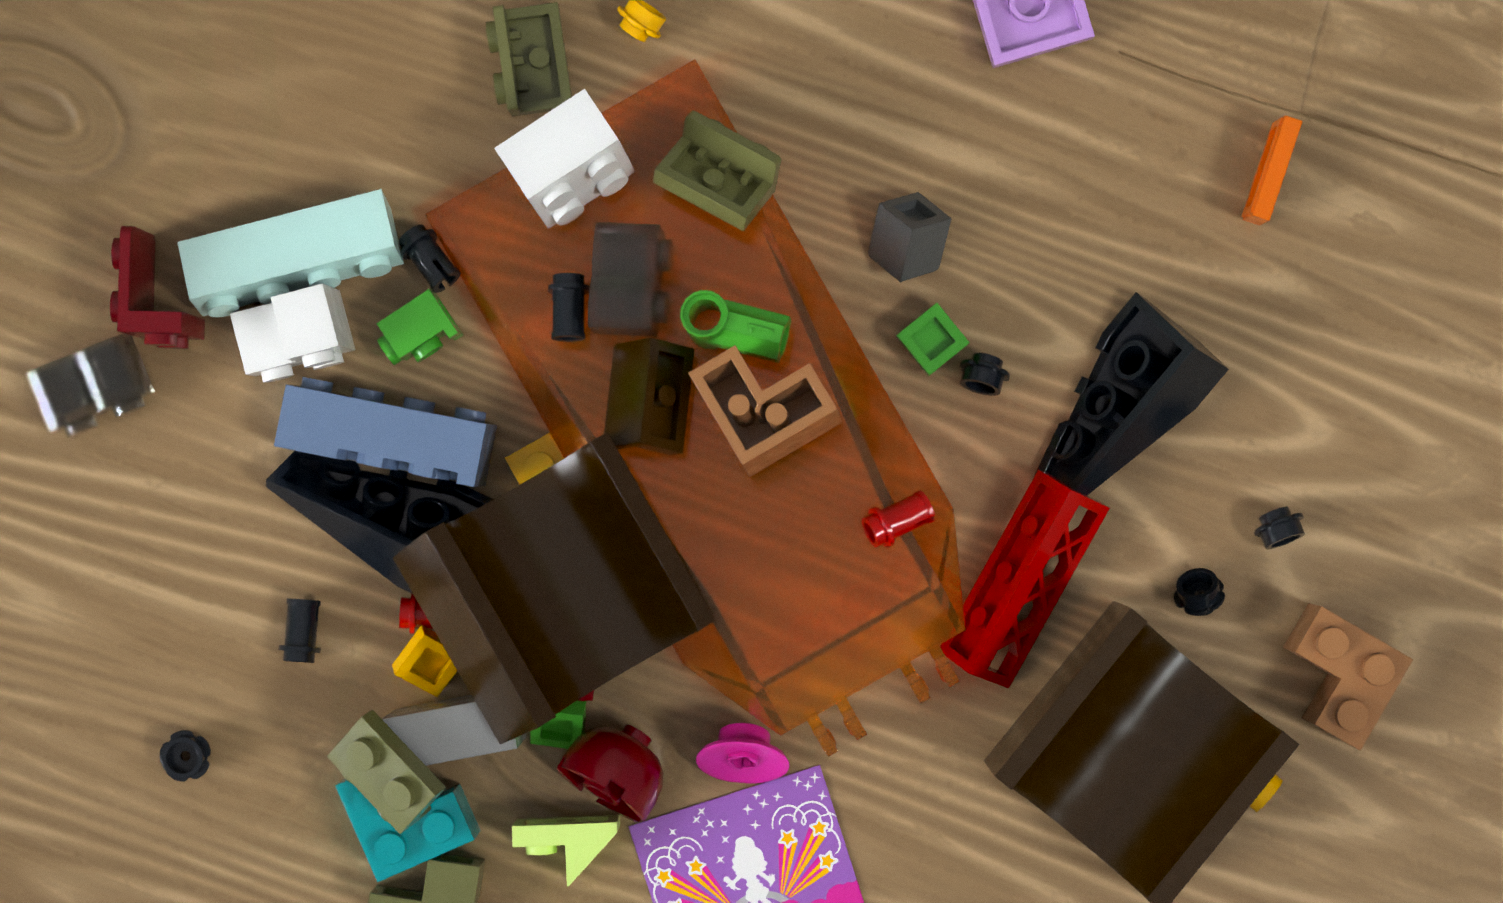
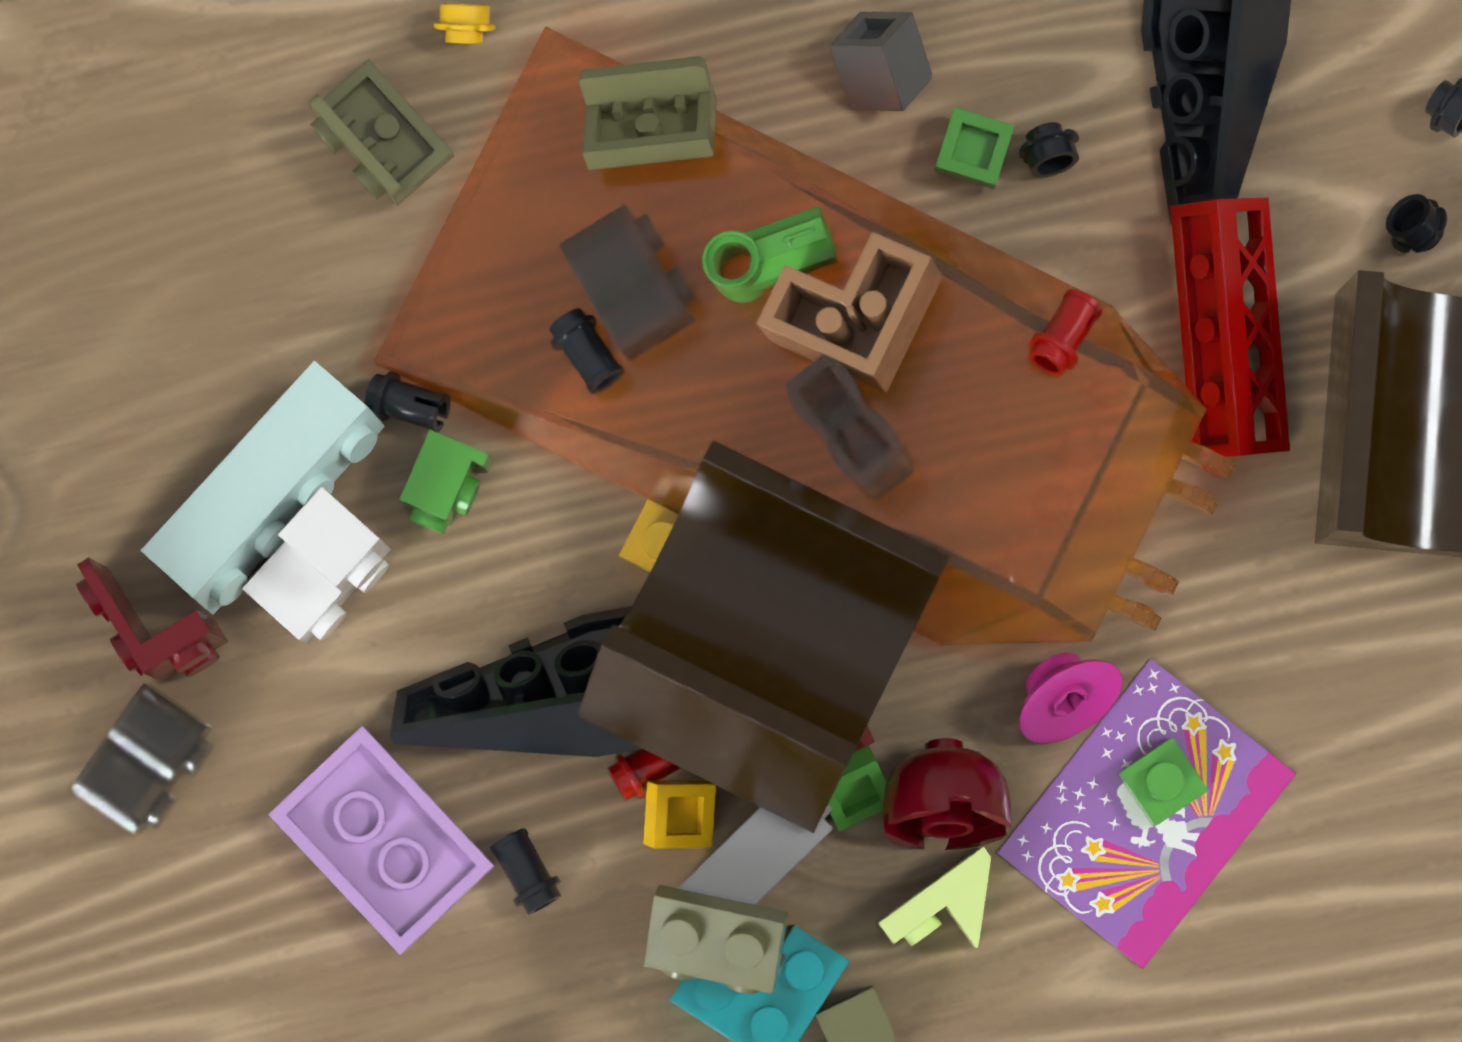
camera: 30 degrees left, 5 degrees down
(217, 545) = (381, 840): none -> lavender plate
(386, 434) = (481, 608): sand blue wedge -> none
(566, 160) = (487, 203): white brick -> none
(649, 395) = (727, 379): dark brown panel -> none
(707, 473) = (855, 433): none -> clear smoke brick
(770, 854) = (1163, 782): none -> bright green plate

